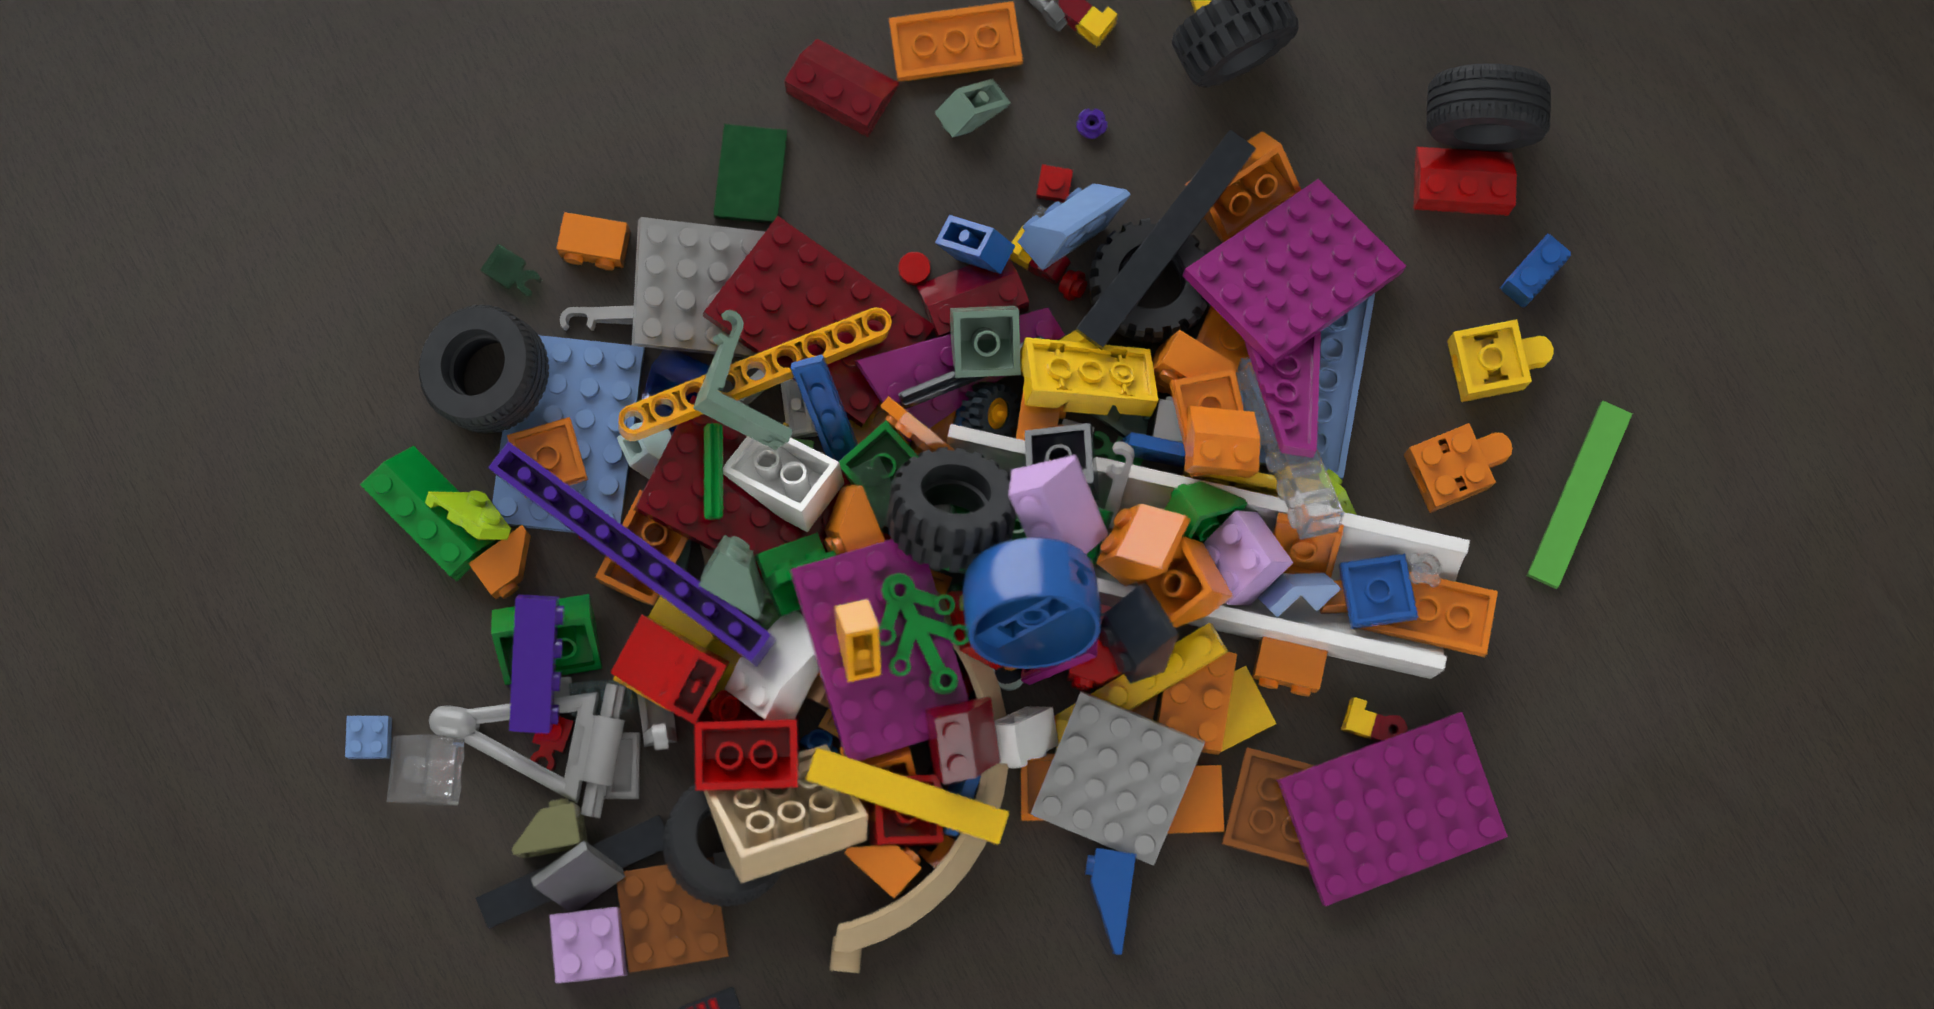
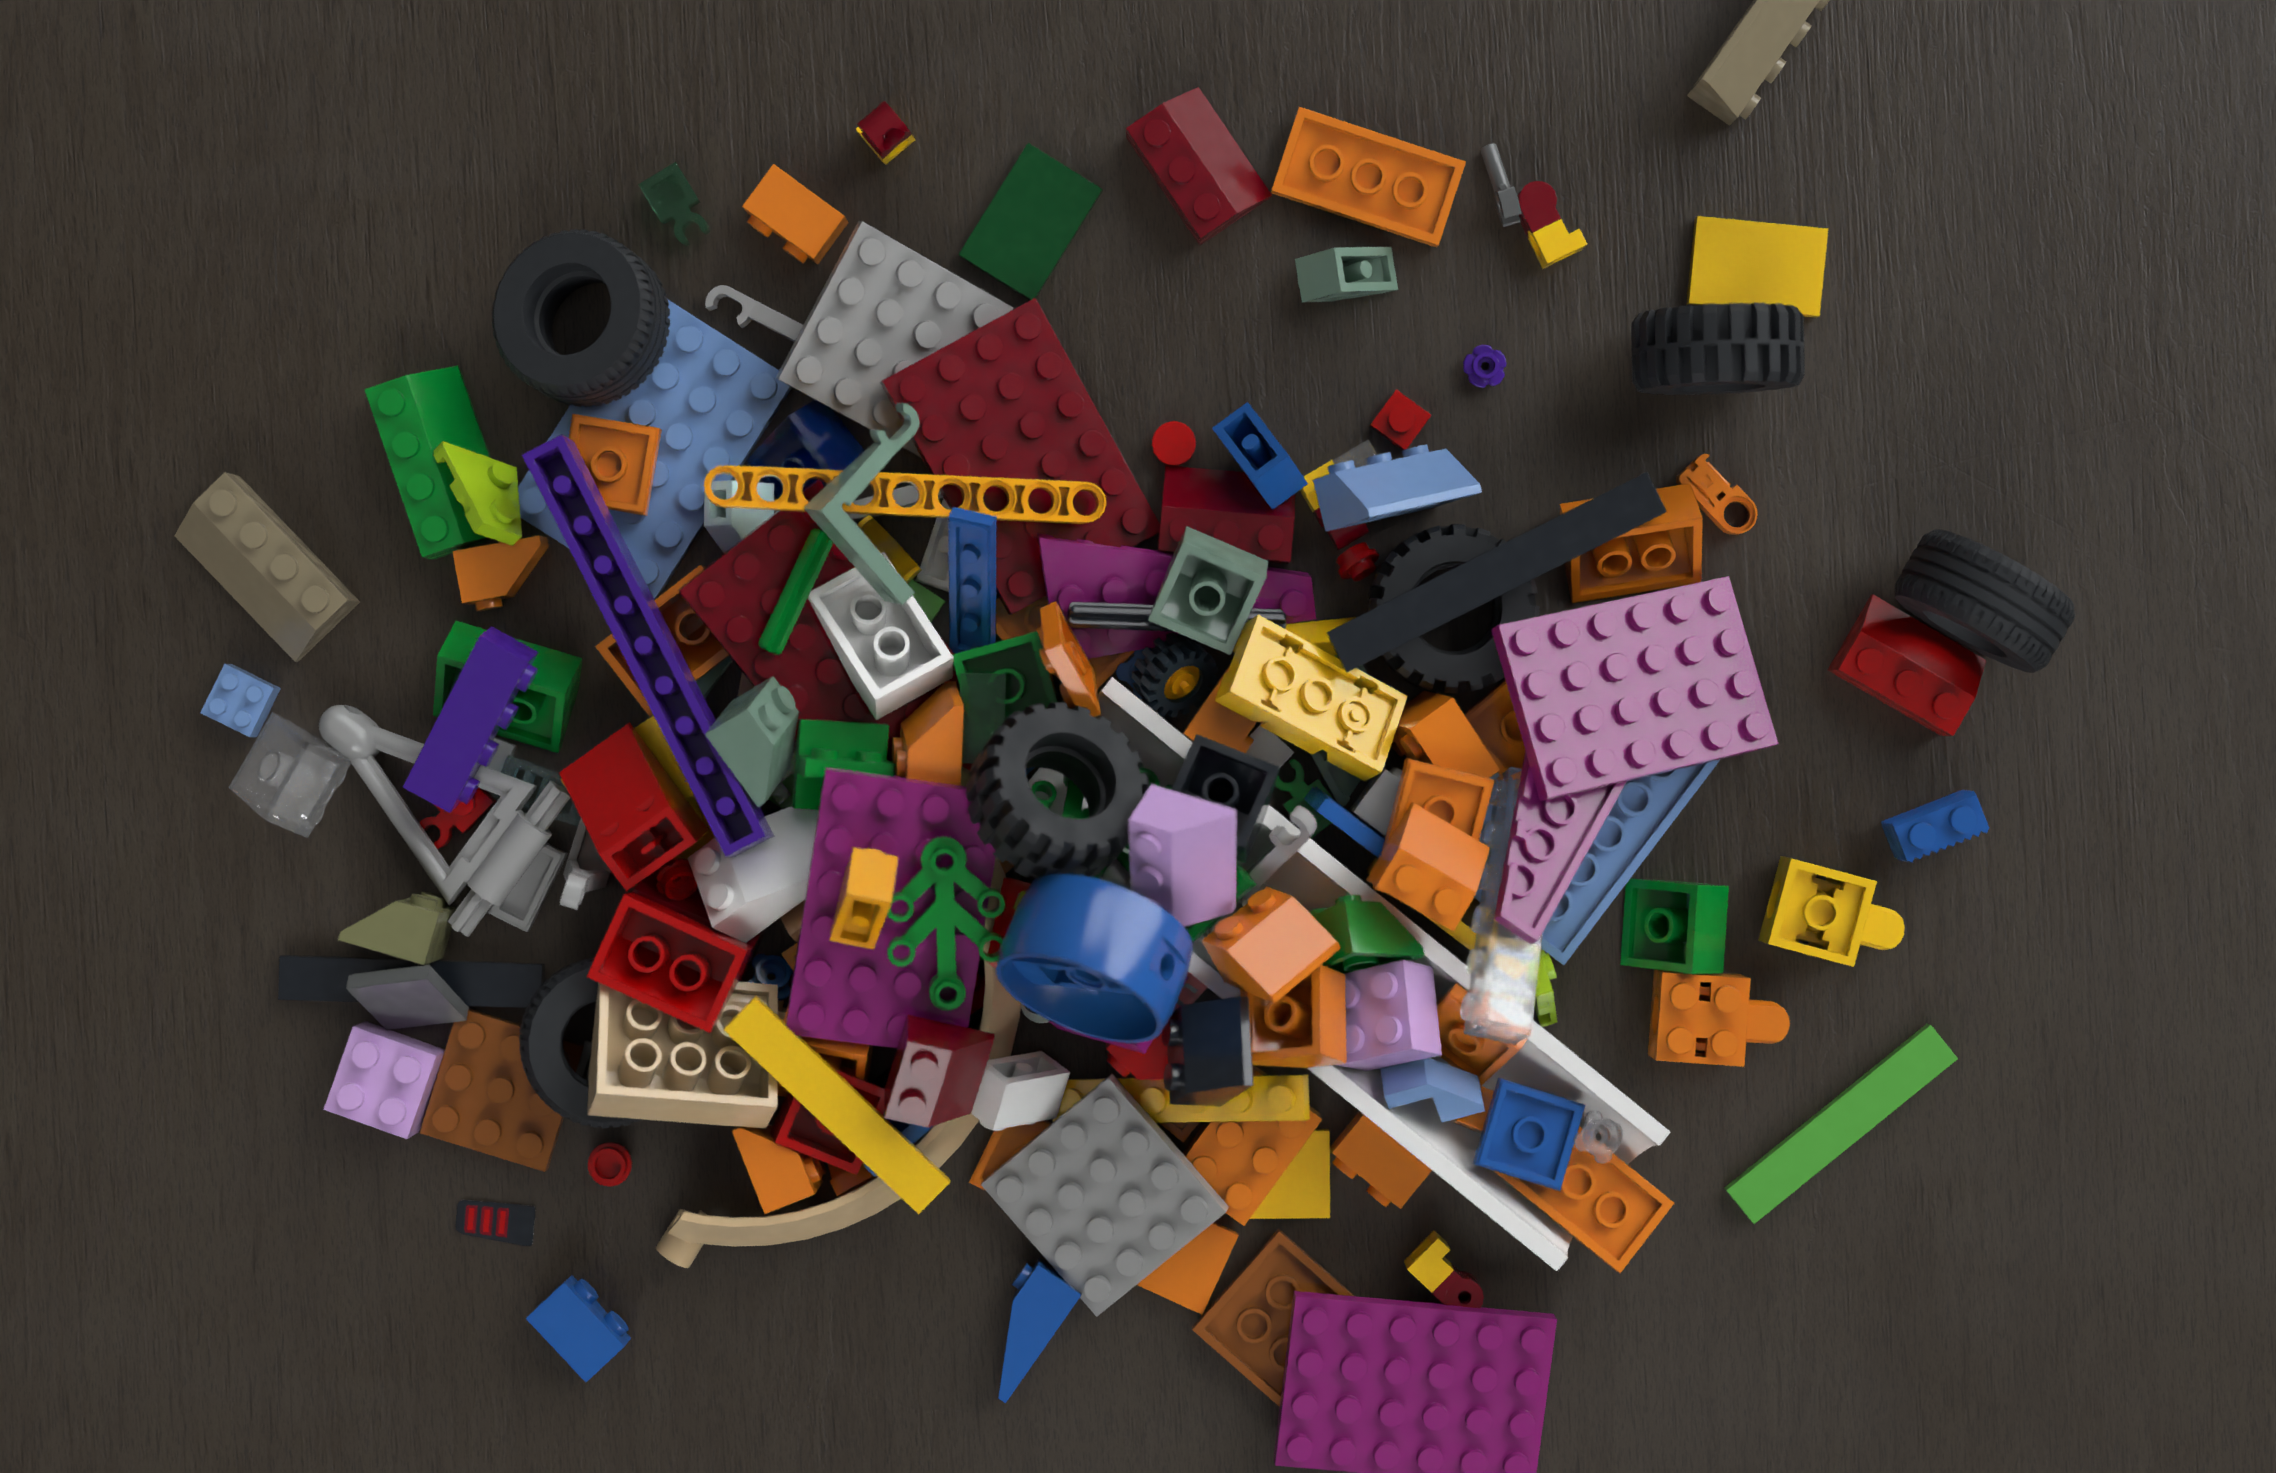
camera: 30 degrees right, 10 degrees up
(343, 639) = (264, 565): none -> dark tan slope
(627, 159) = (884, 132): none -> dark red leg
(770, 929) = (609, 1164): none -> red plate
(1283, 132) = (1714, 494): none -> orange piece
(1401, 416) = (1674, 926): none -> green slope

